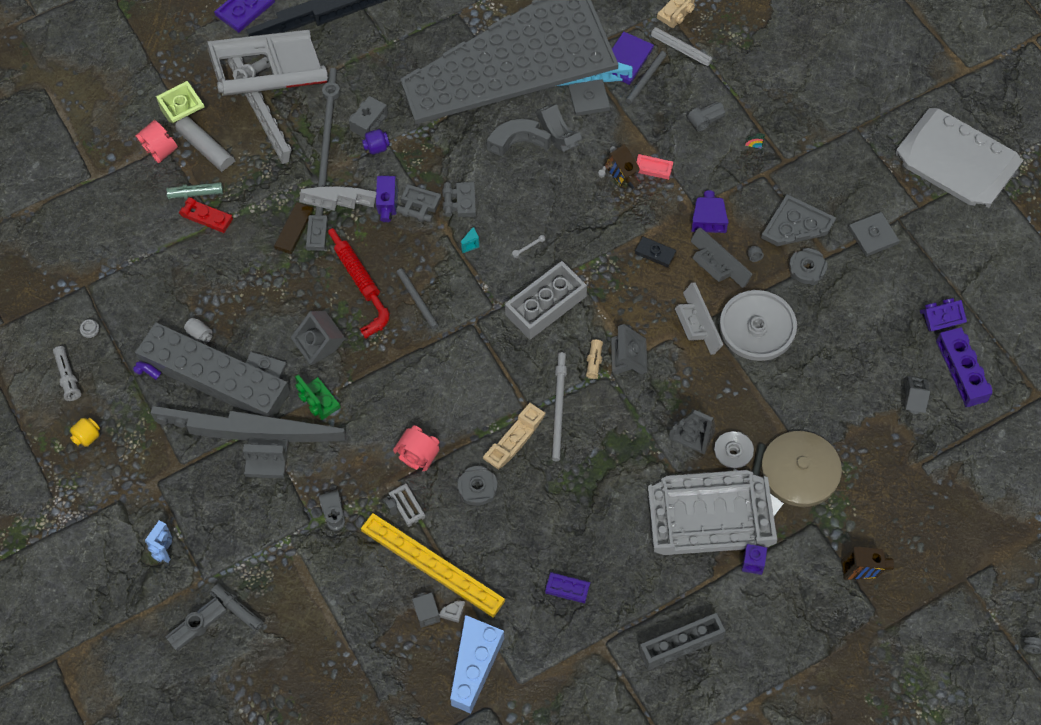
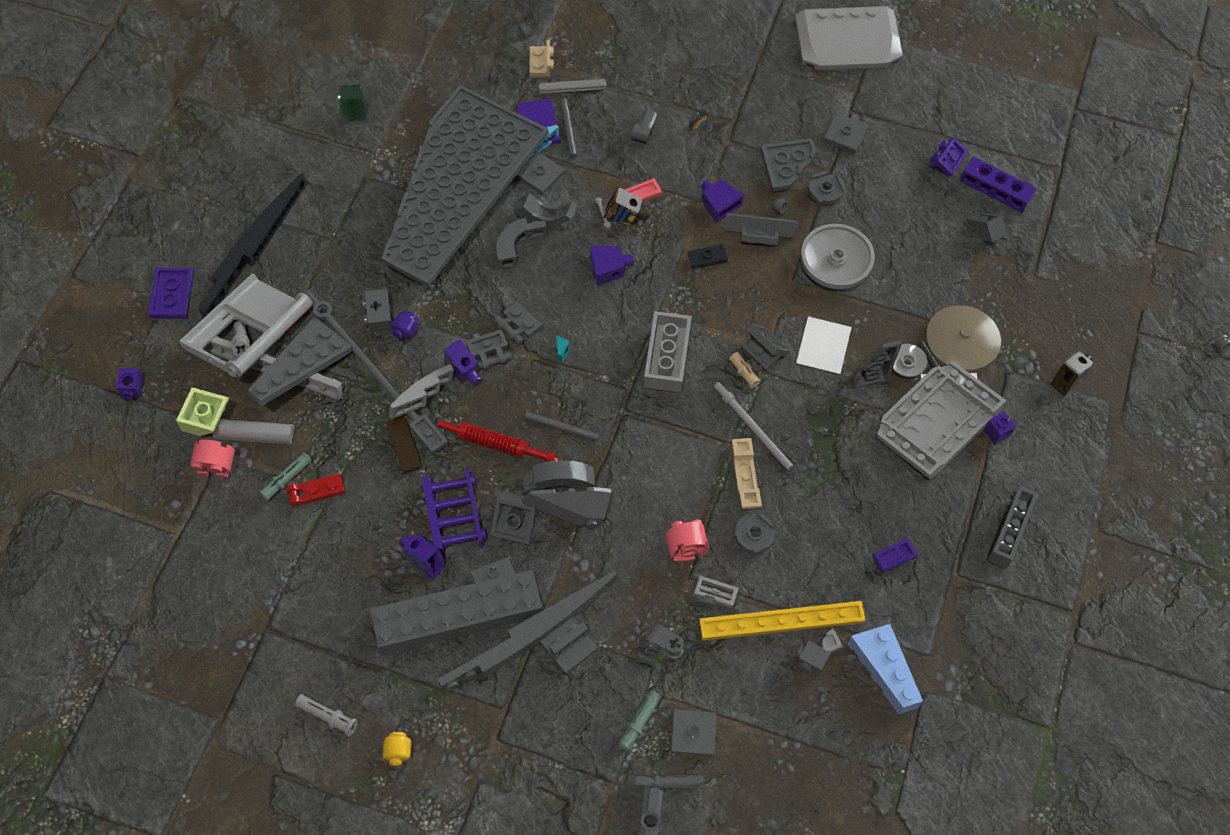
camera: 45 degrees left, 0 degrees up
(89, 328) = (308, 661): light grey plate -> none
(147, 368) = (398, 652): dark purple arm -> none
(157, 50) = (128, 376): none -> dark purple brick
(159, 541) = (558, 789): light blue bracket -> none
(198, 330) = (409, 588): light grey brick -> none
(226, 306) = (423, 555): none -> dark purple torso
(257, 550) = (635, 728): none -> sand green pin
(269, 285) = (434, 506): none -> dark purple fence
(287, 114) = (305, 356): none -> dark grey wing
(290, 590) = (693, 732): none -> dark grey plate
(317, 396) = (563, 565): green bracket -> none
(364, 366) = (579, 508): none -> dark grey wedge
(376, 331) = (559, 473): none -> dark grey arch
(516, 253) = (603, 334): light grey hinge -> none
(570, 202) = (608, 263): none -> dark purple torso
(680, 388) = (824, 345): none -> white sticker
(697, 320) = (789, 283): light grey bracket -> none

